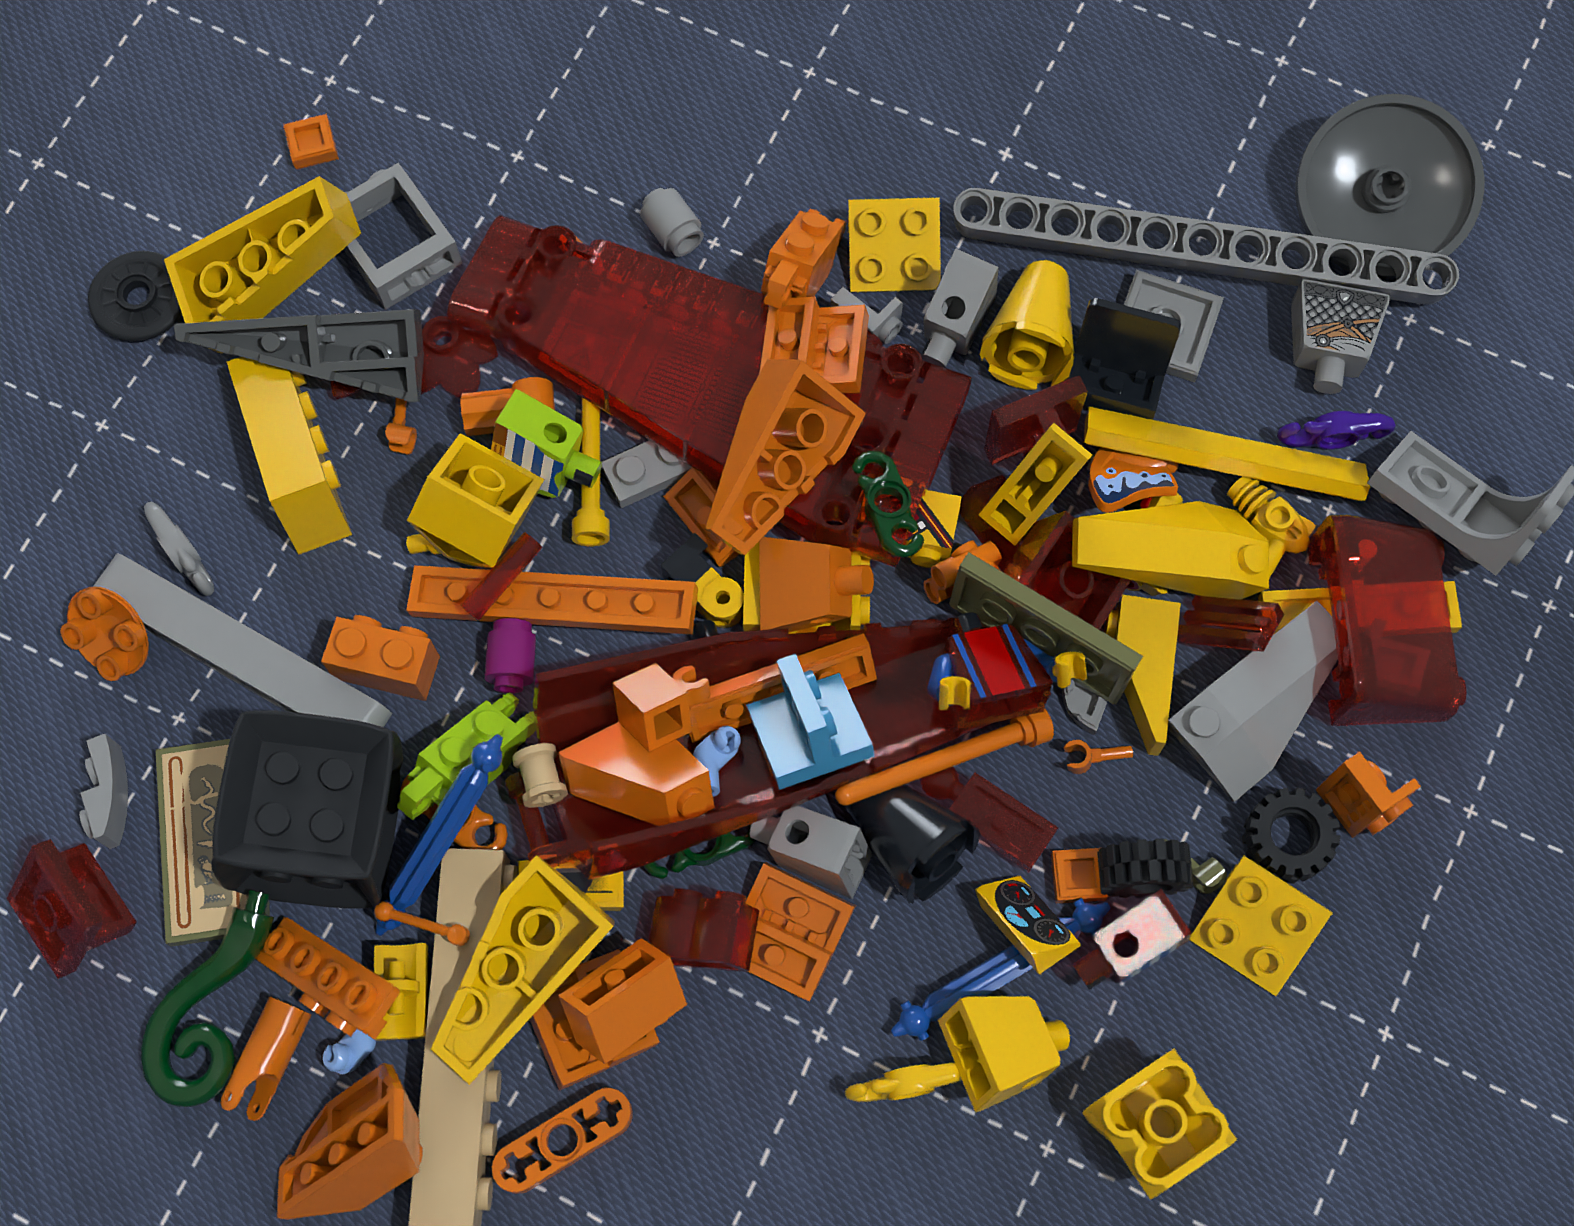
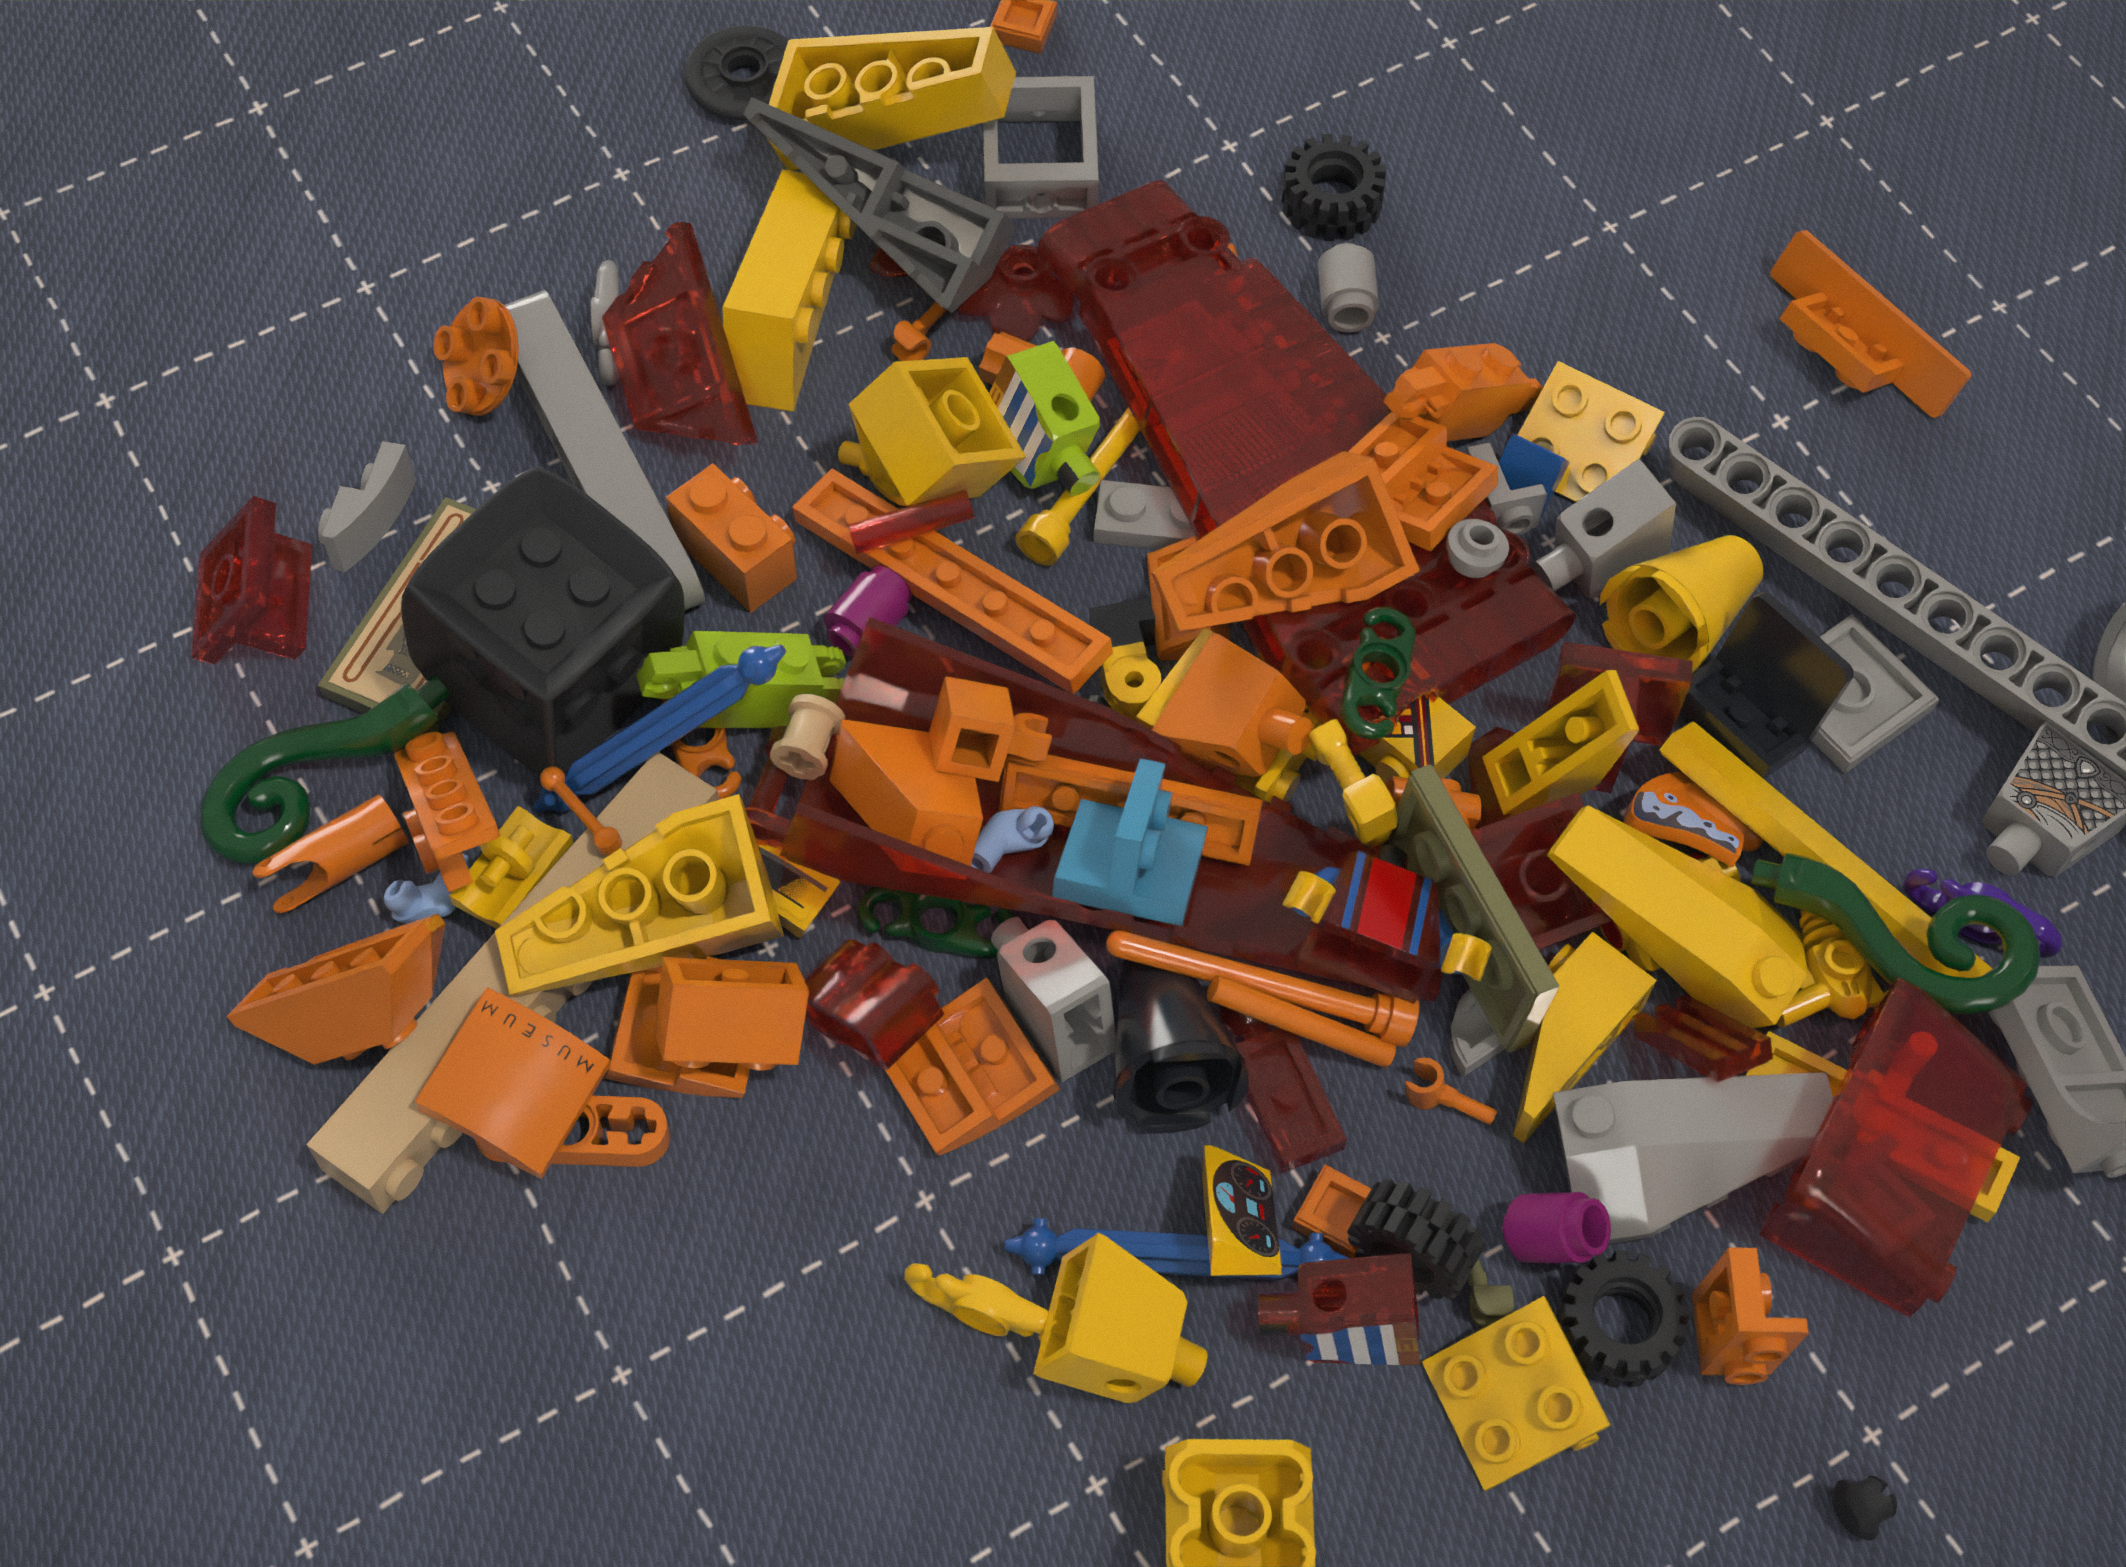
camera: 30 degrees right, 10 degrees down
(249, 546) = (676, 348): none -> clear red wing
(511, 1140) = (513, 1082): none -> orange slope
(612, 128) = (1333, 163): none -> black tyre
(876, 286) = (1530, 465): none -> blue slope
(885, 381) = (1476, 548): none -> light grey plate
(940, 601) = (1364, 798): none -> yellow piece
(981, 768) = (1300, 1021): none -> orange bar
(1019, 60) = (1861, 329): none -> orange bracket
(1220, 804) = (1556, 1227): none -> magenta brick
(1248, 479) = (1830, 894): none -> dark green plant
(1496, 861) = (1862, 1506): none -> black piece

